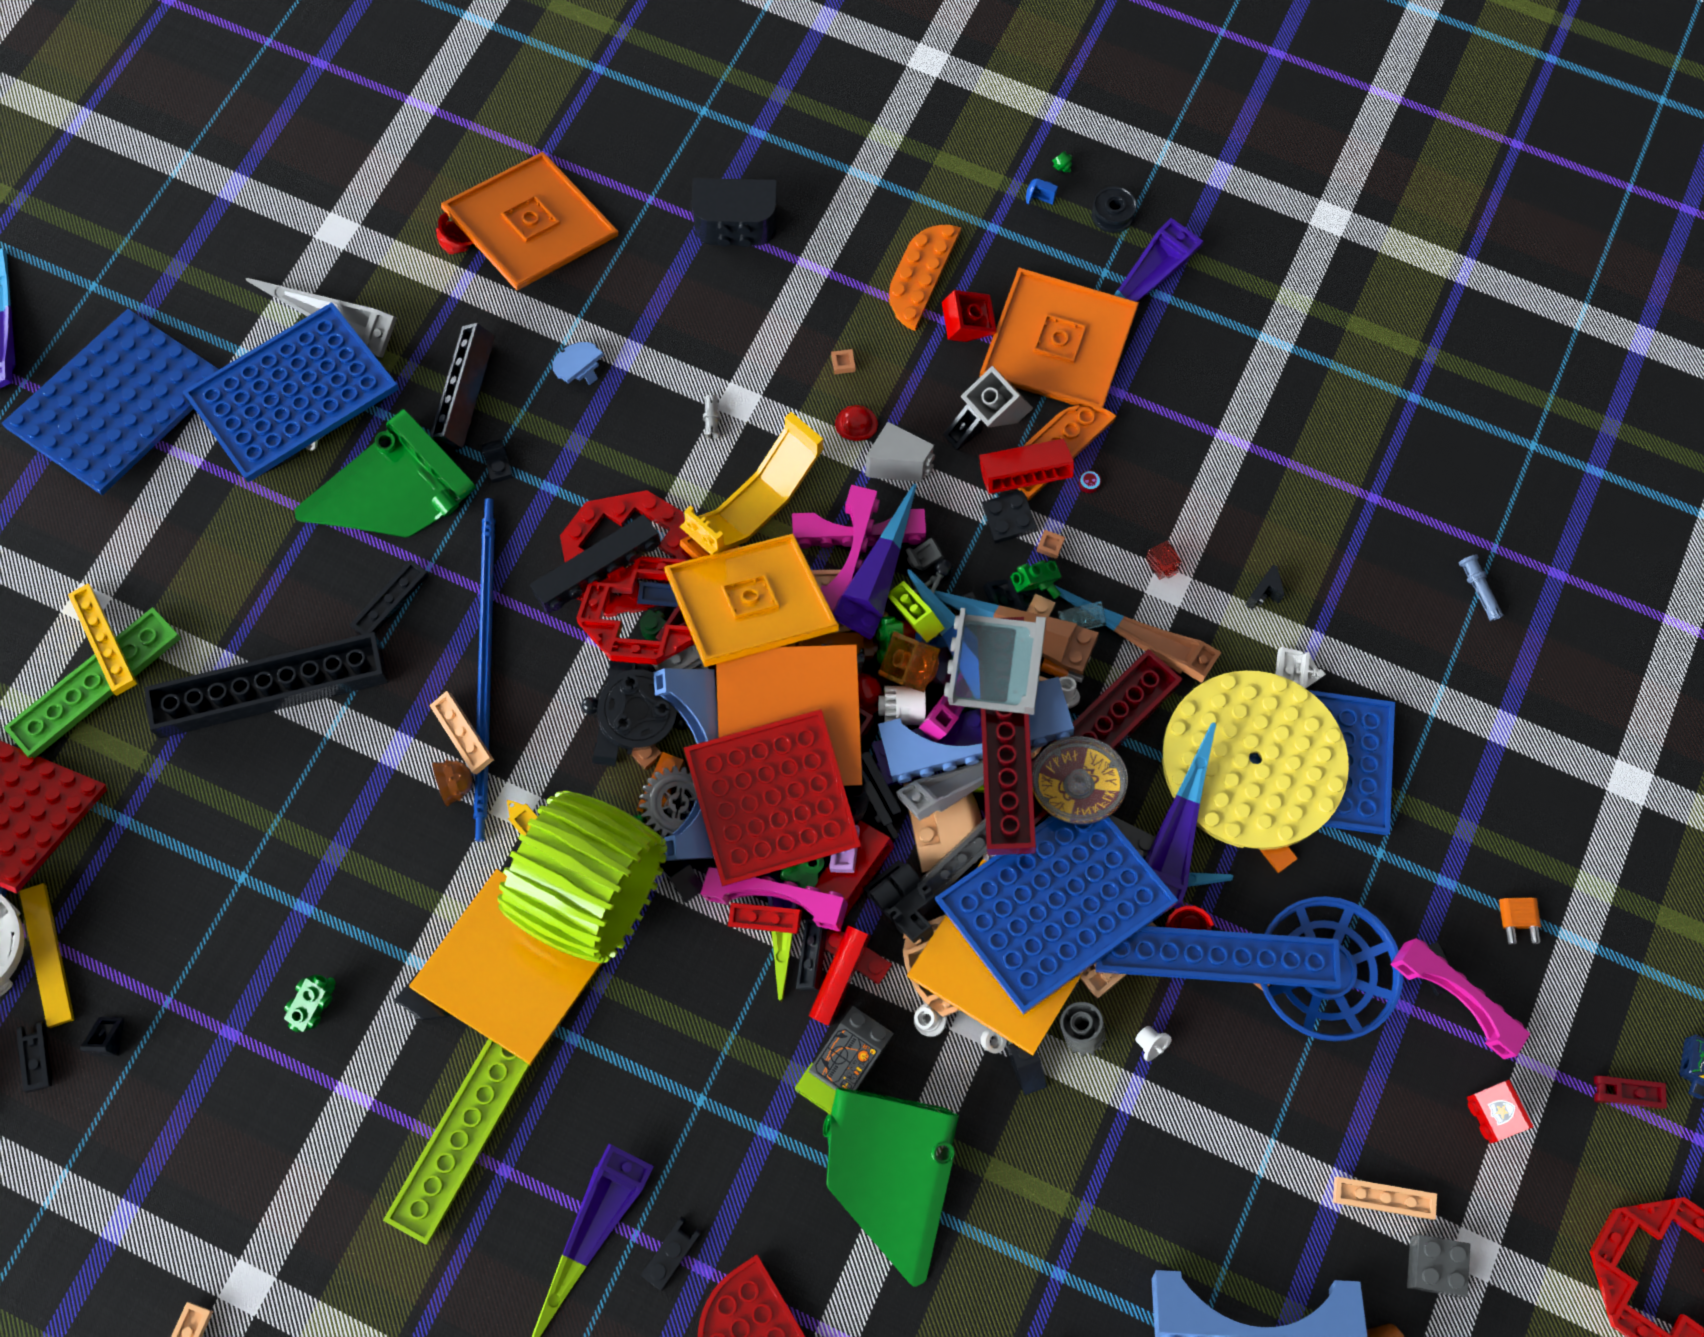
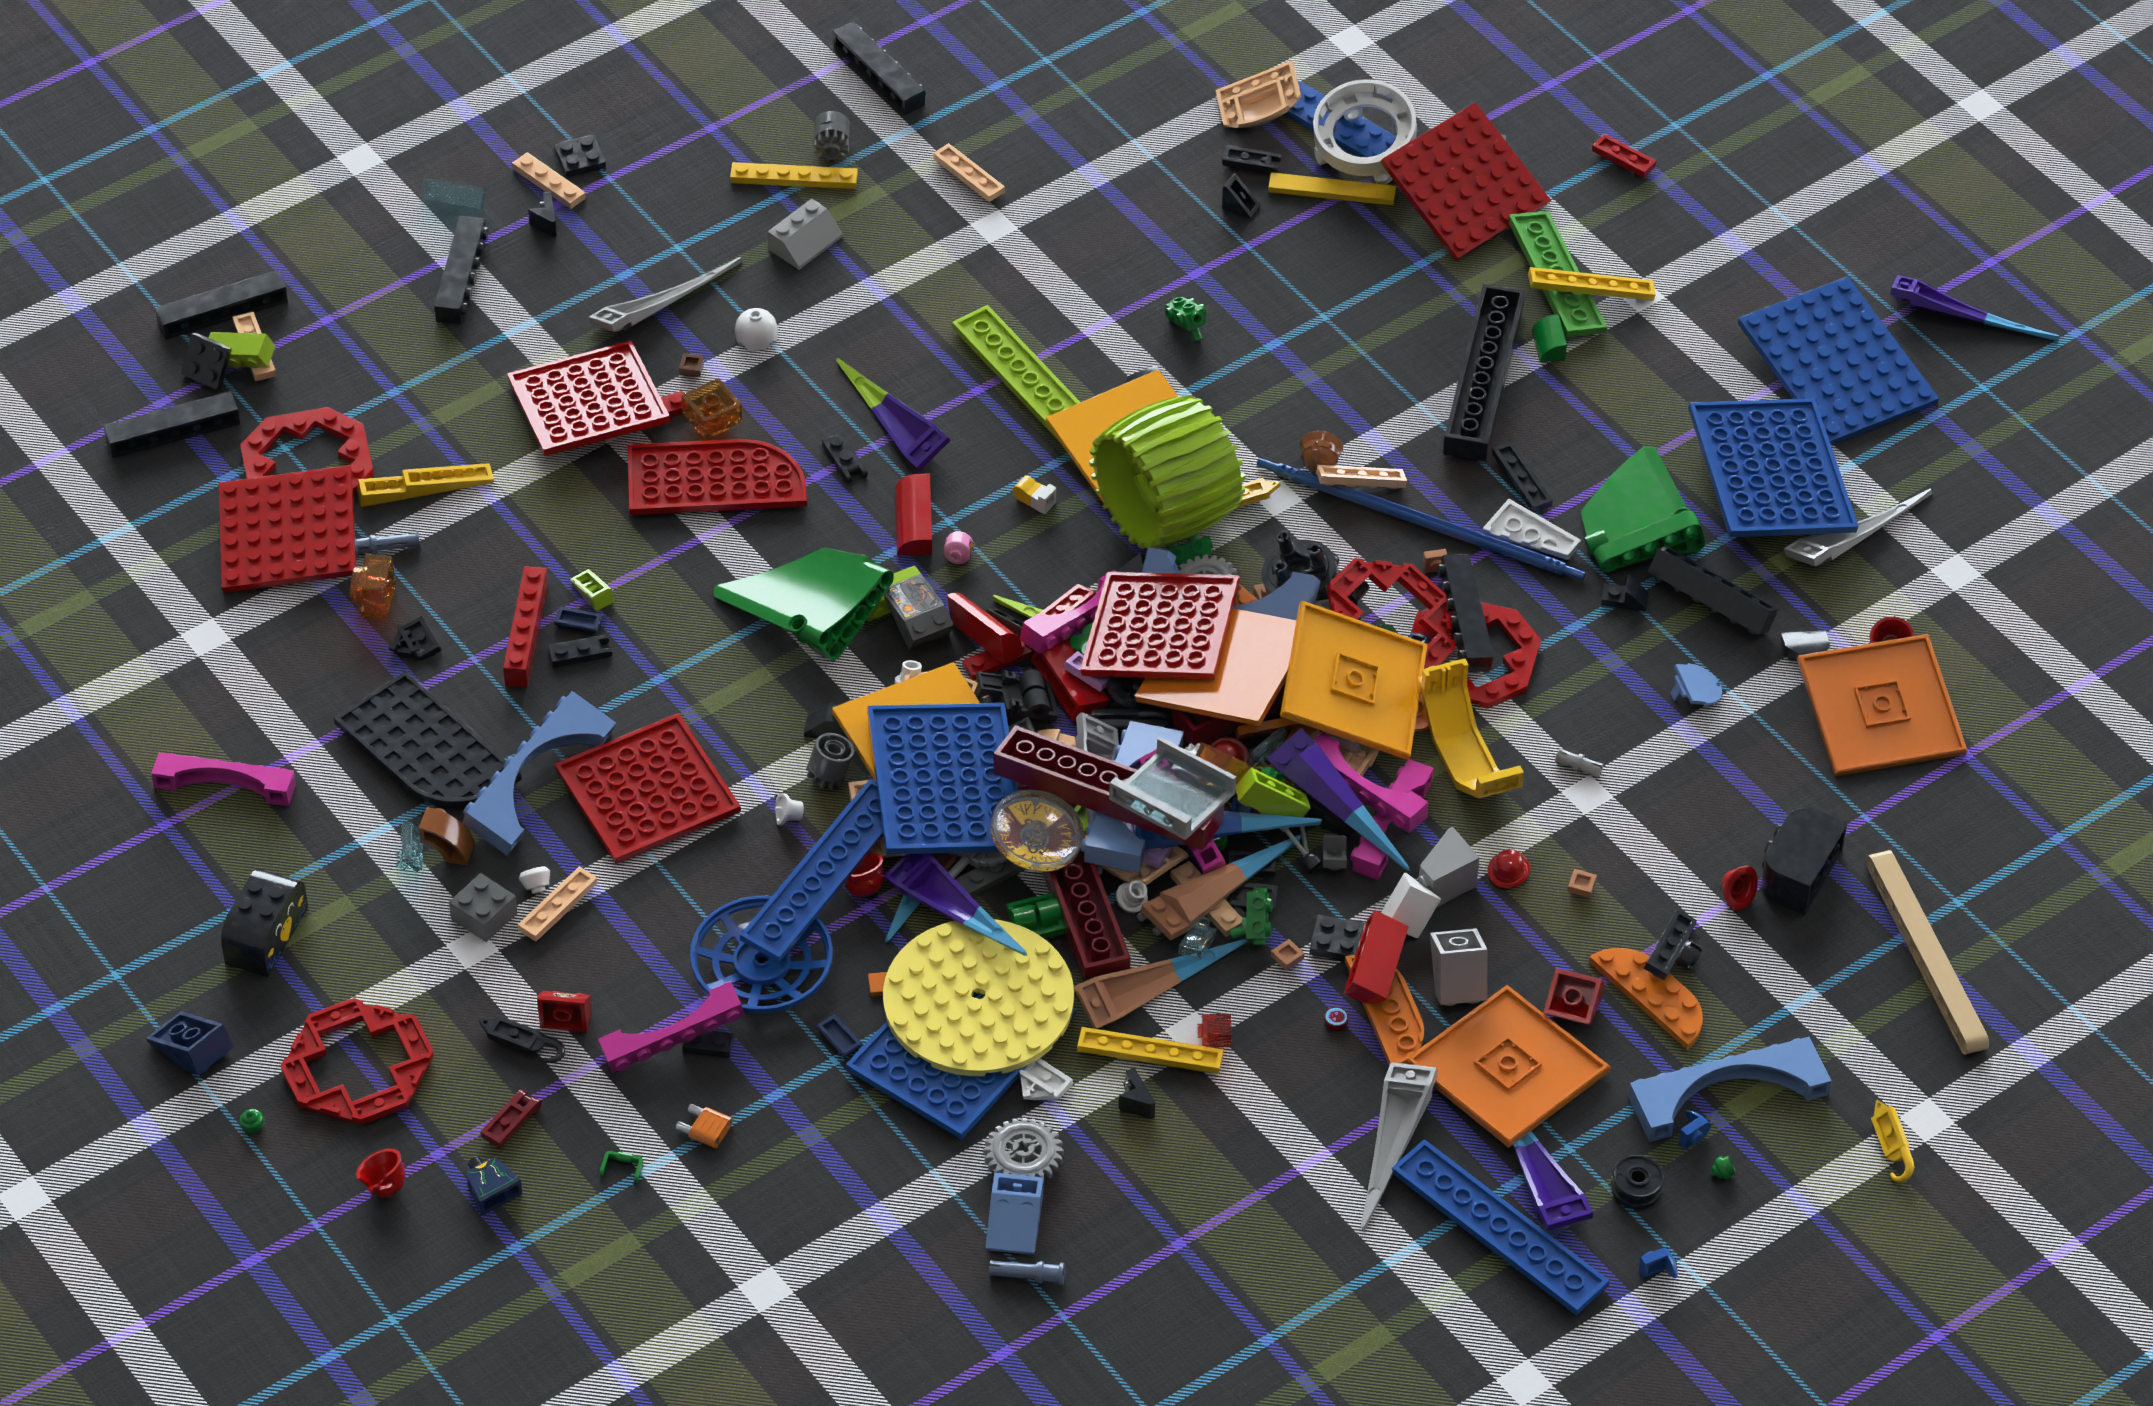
camera: 120 degrees right, 20 degrees down
(190, 652) = (1549, 339): none -> green brick
(454, 569) = (1528, 529): none -> white wing
(485, 301) = (1804, 642): none -> slope
(536, 624) = (1432, 559): none -> nougat plate
(629, 1028) = (1035, 494): none -> leg
(718, 1134) = (913, 515): none -> red brick
(740, 1063) = (958, 547): none -> bright pink head
(770, 108) = (1927, 952): none -> tan beam
(783, 249) = (1740, 887): none -> red hat
(874, 267) = (1674, 947): none -> black plate
(952, 470) = (1411, 905): none -> white slope
(967, 66) = (1892, 1139): none -> yellow plate
(1022, 222) = (1786, 1064): none -> medium blue arch
(1140, 759) = (1038, 914): none -> green plate
(1147, 390) = (1404, 1100): none -> light grey plate
(1177, 169) = (1657, 1261): none -> blue plate
(1202, 1197) = (647, 788): none -> red plate
(1213, 285) = (1500, 1227): none -> blue plate
(1213, 602) = (1150, 1050): none -> yellow plate
(1358, 859) = (839, 1035): none -> dark blue tile
(1373, 656) = (1022, 1156): none -> light grey gear
(1374, 1237) = (535, 879): none -> white cone
(1440, 621) = (1014, 1213): none -> medium blue slope
(1545, 1138) = (521, 1037): none -> black plate
(1596, 971) = (622, 1157): none -> green piece

